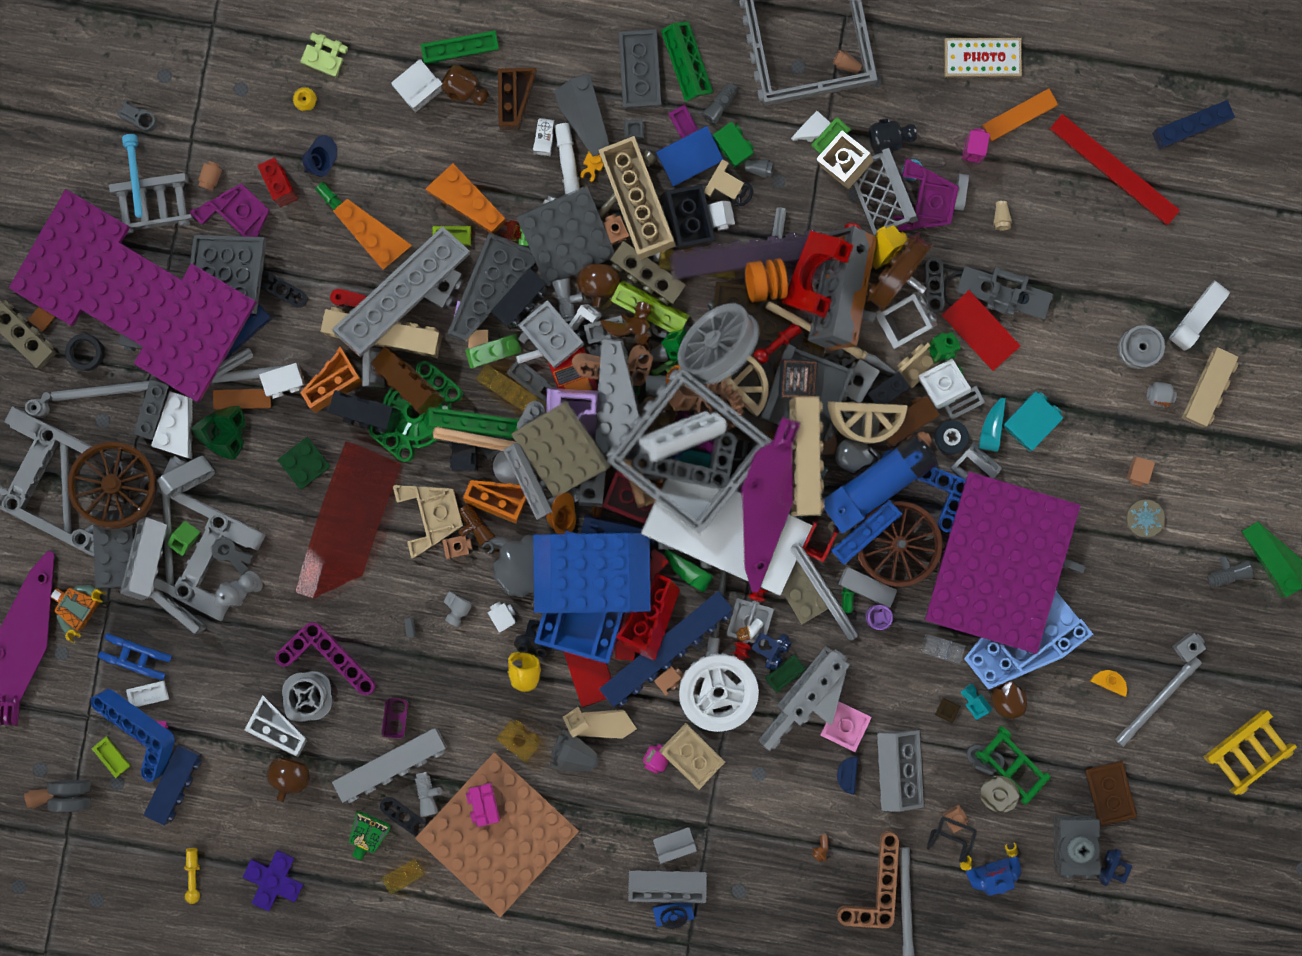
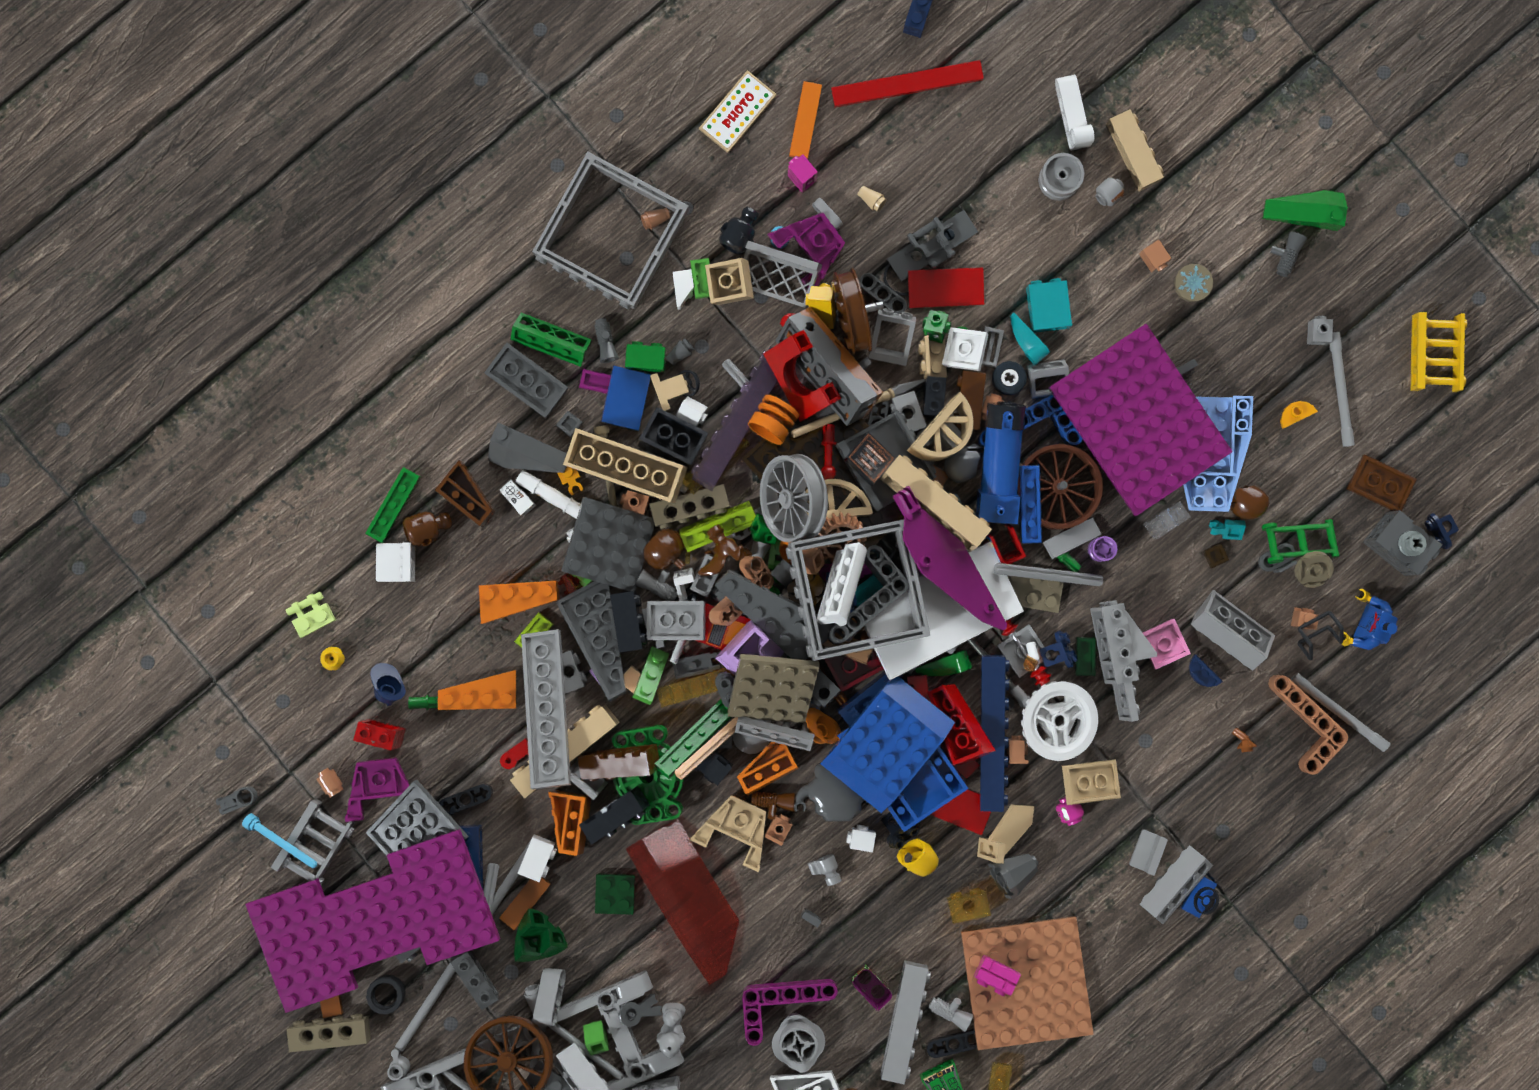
camera: 50 degrees left, 0 degrees up
(175, 426) = (502, 972): white wedge -> none

